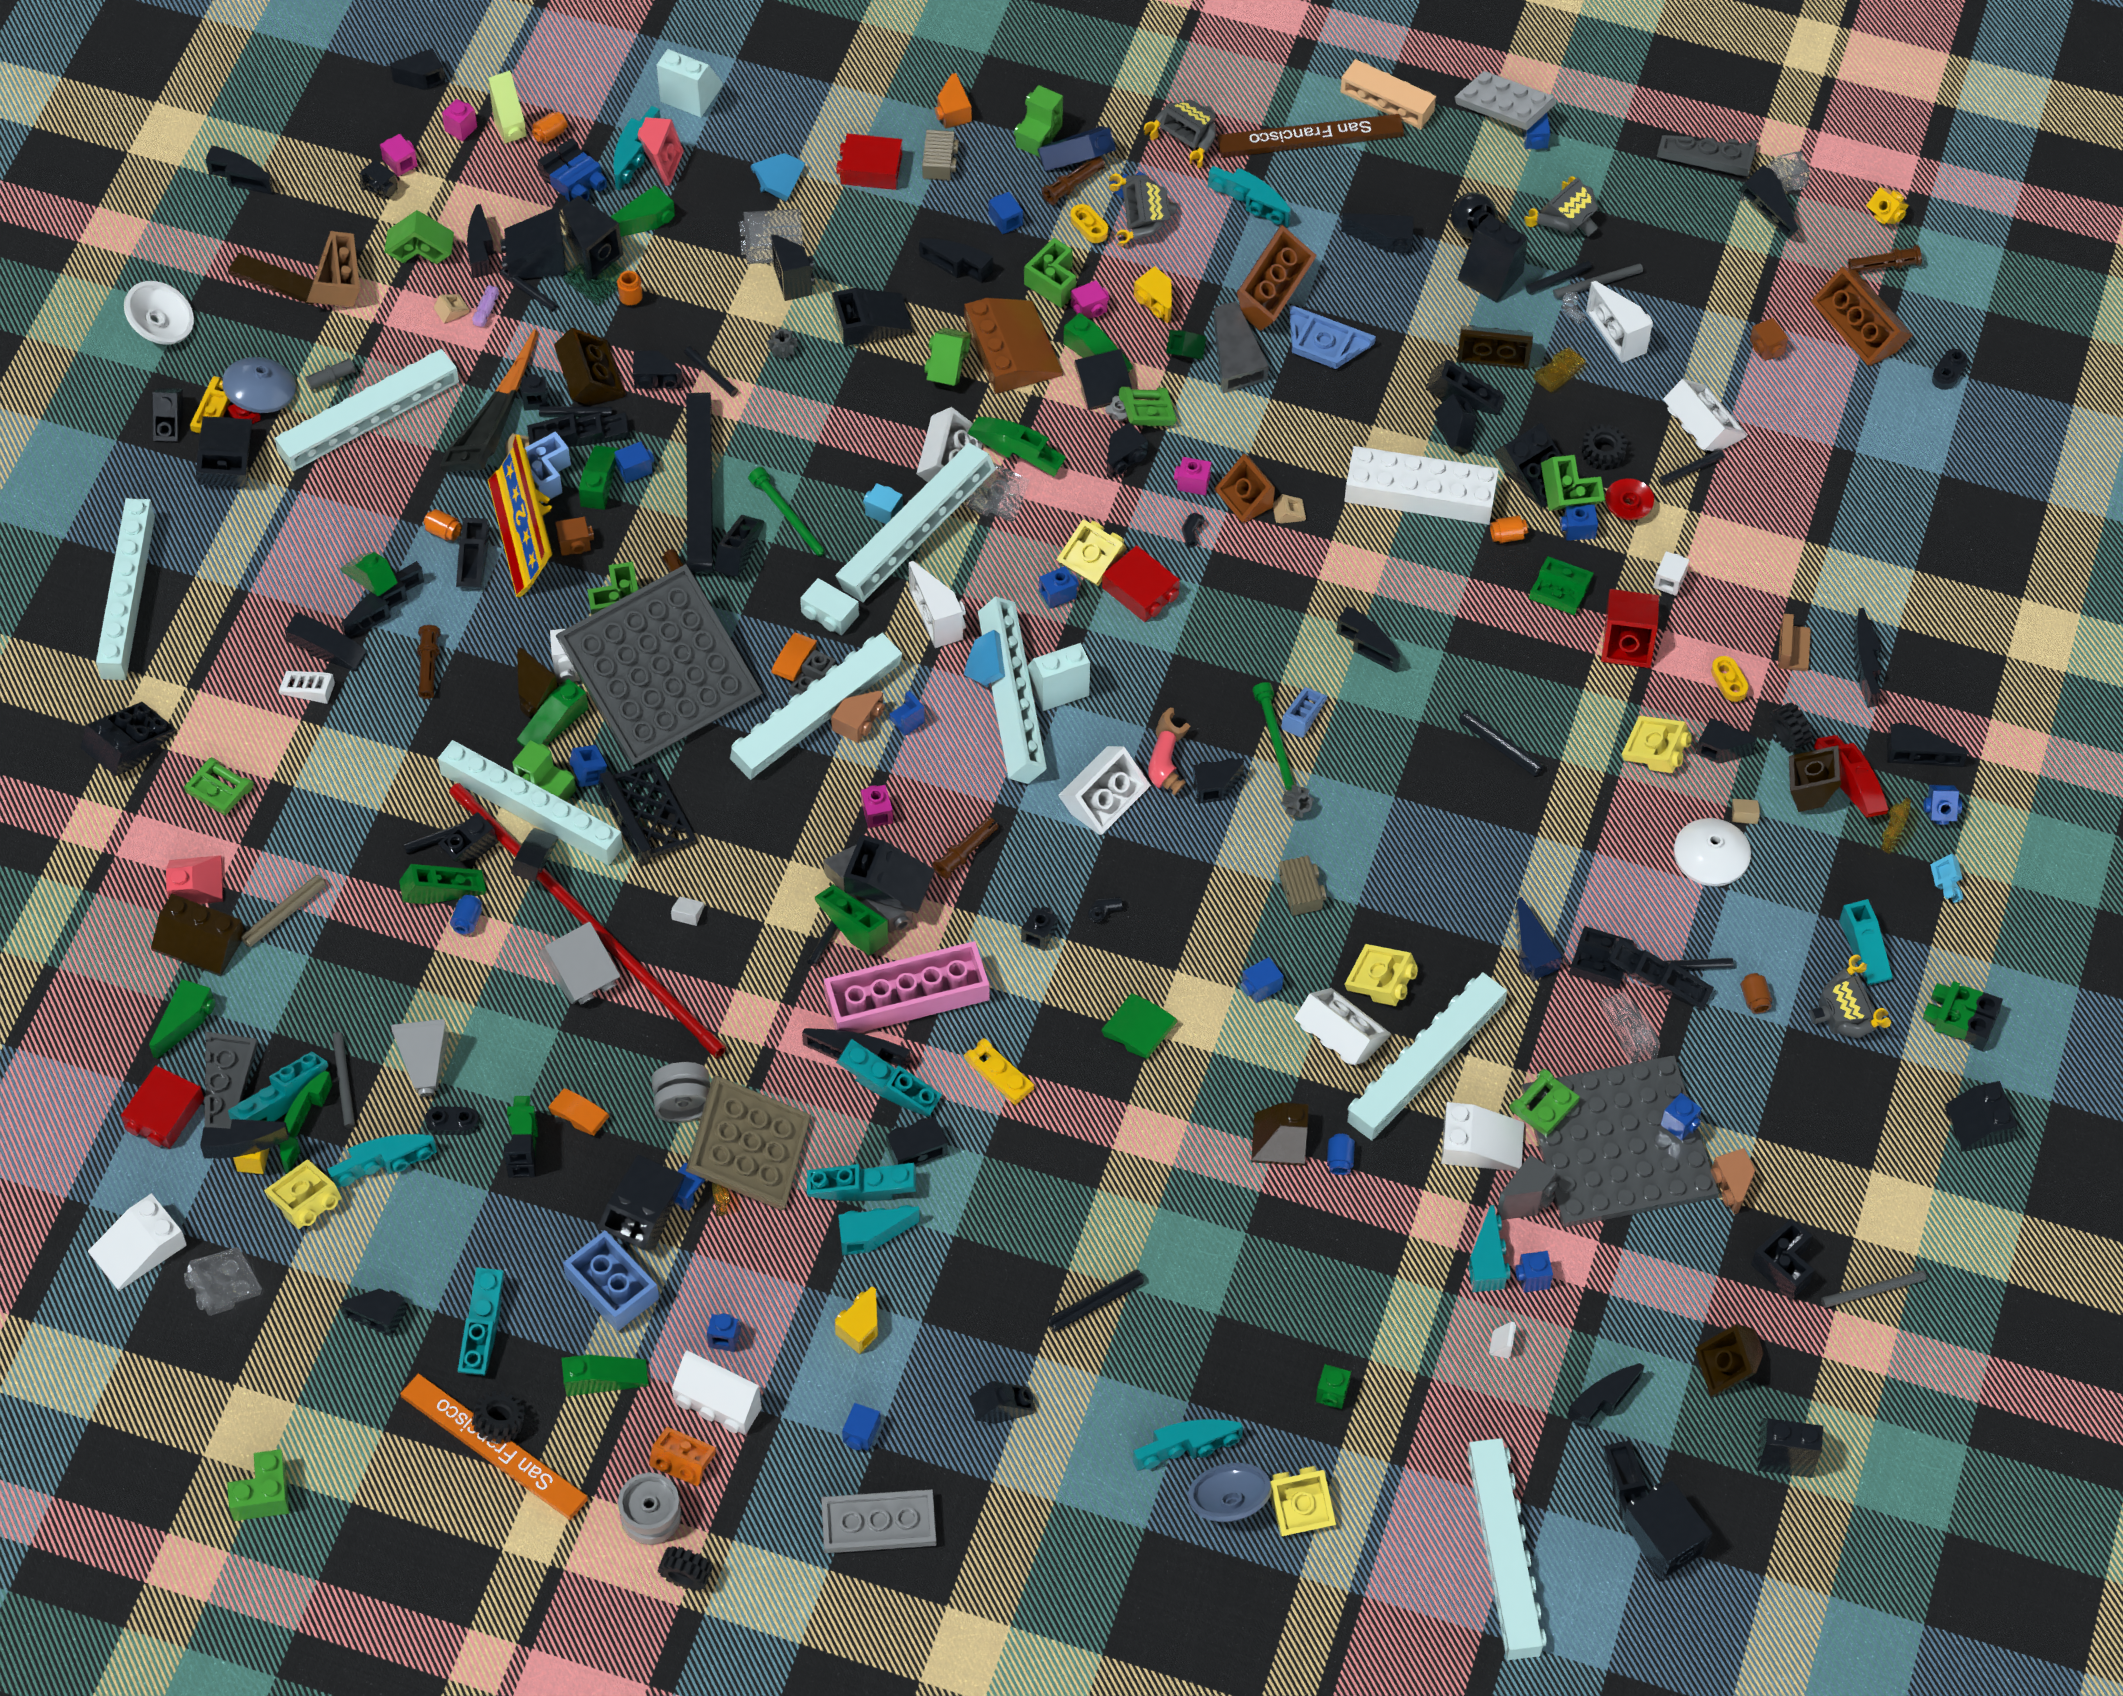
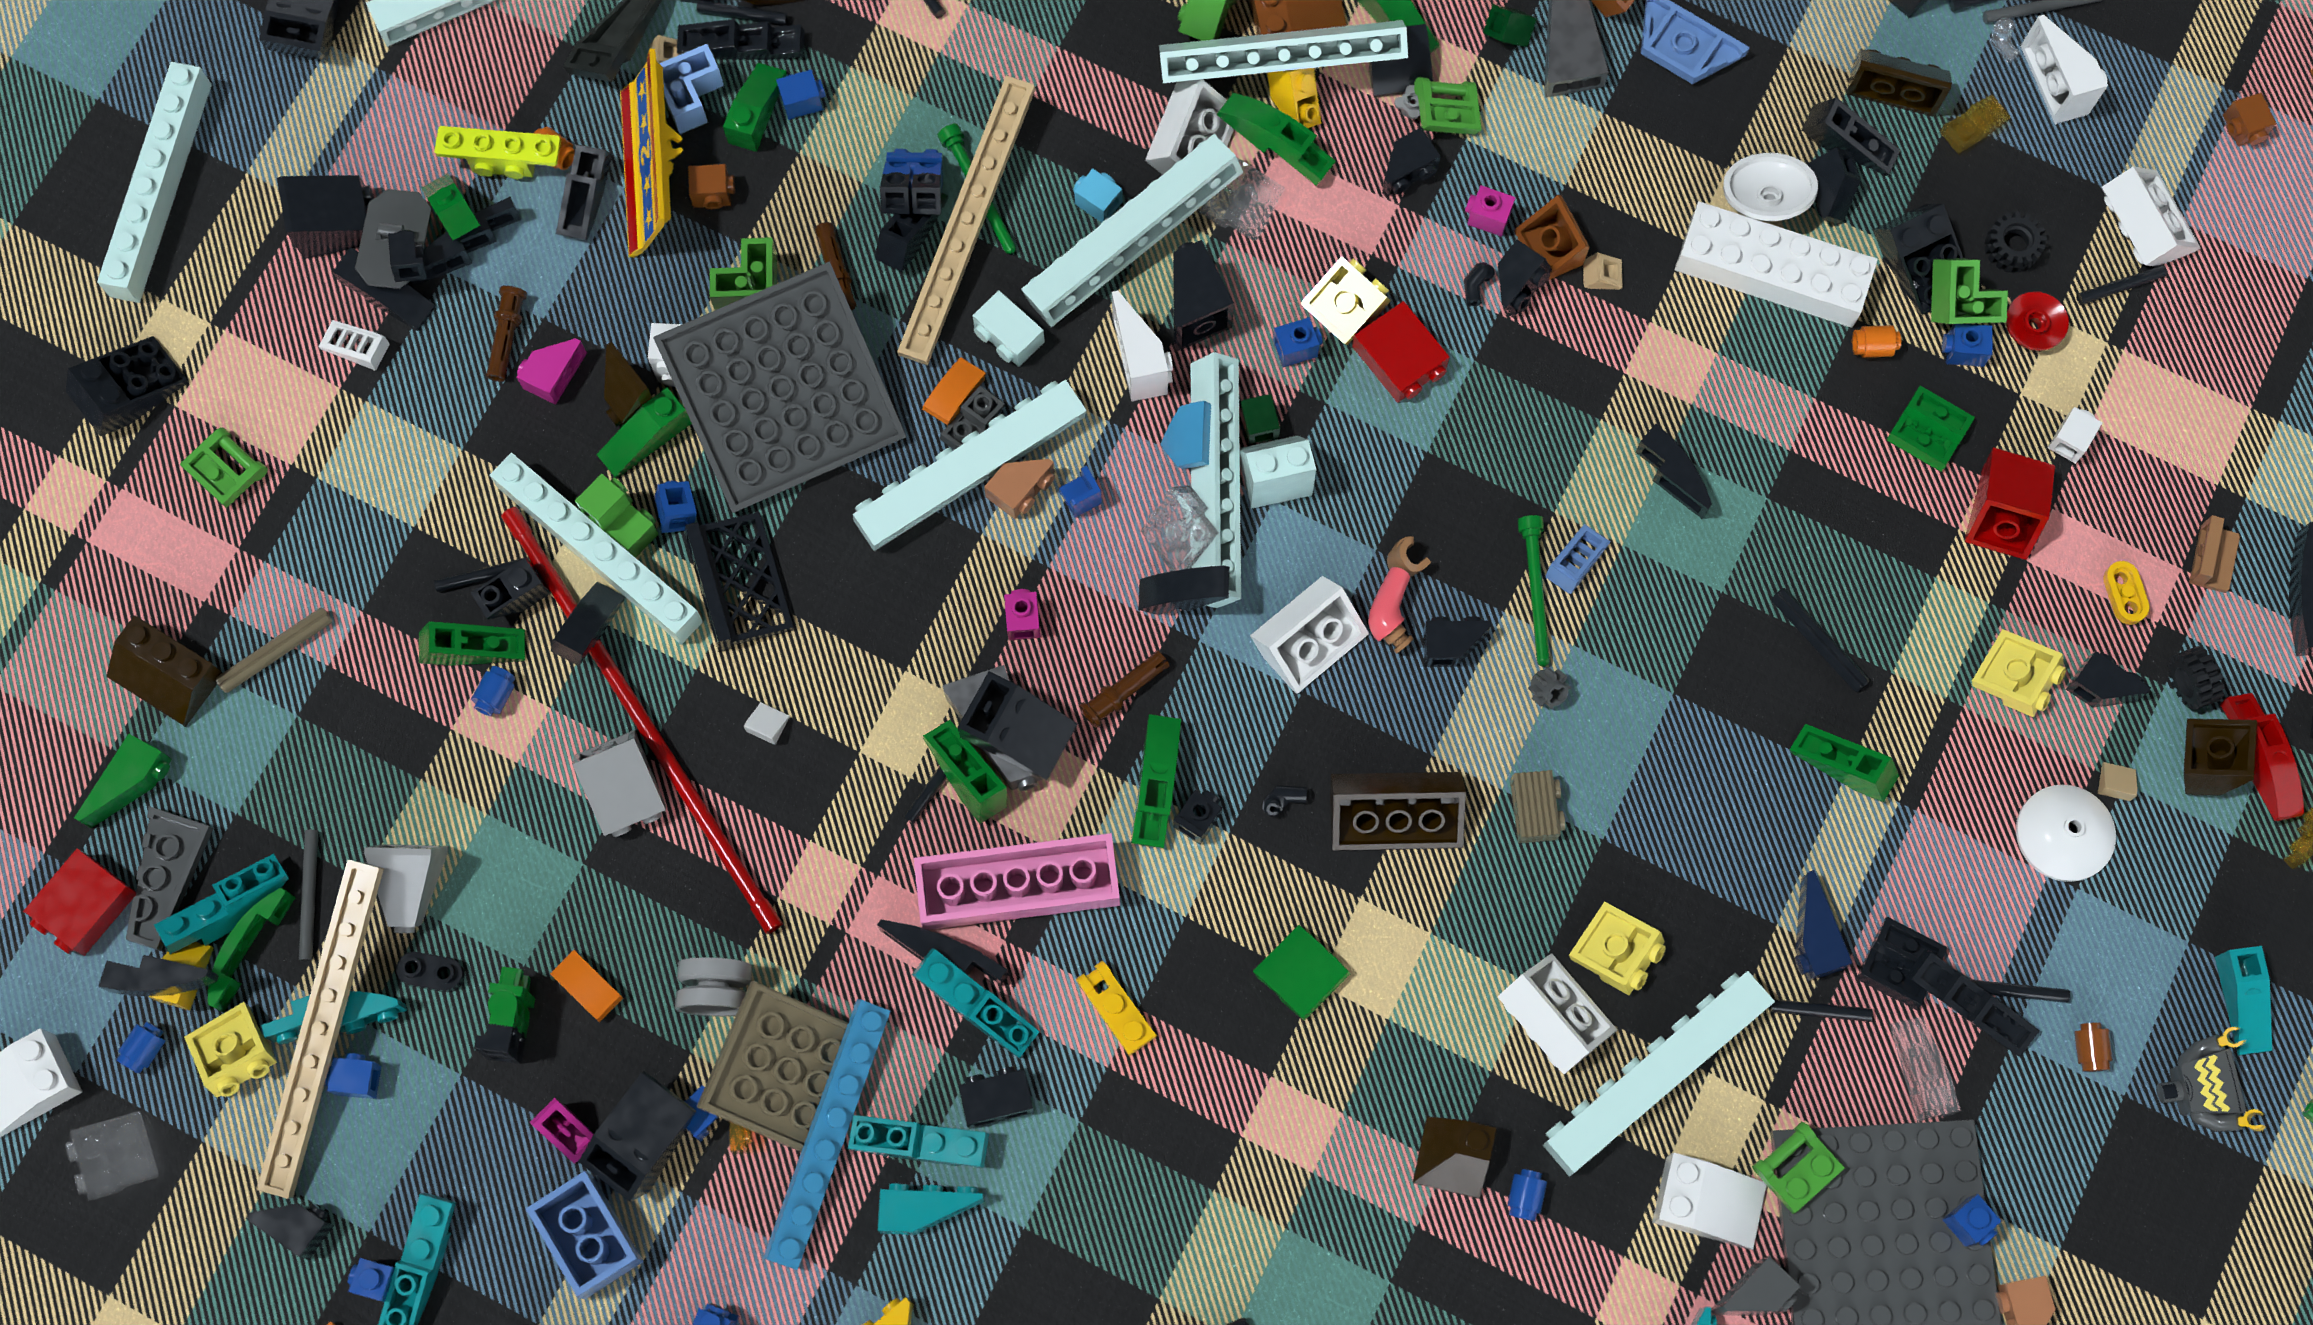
camera: 10 degrees right, 15 degrees up
(196, 879) = (172, 591): coral slope -> none
(230, 1202) = (141, 1047): none -> blue brick
(271, 592) = (324, 212): none -> black slope
(329, 602) = (389, 214): none -> dark grey shield
(345, 610) = (406, 256): none -> black brick
(376, 1162) = (320, 1029): none -> tan plate
(401, 531) = (498, 151): none -> neon yellow bracket
(405, 1200) = (353, 1077): none -> blue brick
(447, 1337) = (370, 1279): none -> blue brick
(470, 682) = (551, 369): none -> dark pink slope
(578, 1212) = (563, 1129): none -> dark pink slope
(699, 482) = (875, 133): black beam -> none
(733, 504) = (912, 171): none -> black hips
(783, 533) = (966, 220): none -> tan plate
(788, 1186) = (826, 1134): none -> dark azure plate
(976, 562) = (1199, 297): none -> black slope
(990, 725) = (1180, 528): none -> clear plate
(1000, 766) = (1183, 589): none -> black slope
(1003, 907) = (1156, 781): none -> green slope
(1012, 379) = (1283, 51): none -> light aqua brick
(1026, 409) = (1296, 95): none -> yellow slope
(1038, 641) = (1260, 420): none -> dark green panel
(1194, 903) = (1397, 810): none -> dark brown slope
(1225, 517) = (1520, 276): none -> black slope
(1262, 980) = (1465, 933): blue brick -> none
(1407, 430) = (1770, 186): none -> white dish
(1539, 823) = (1847, 762): none -> green slope
(1545, 998) = (1822, 1010): none -> black bar

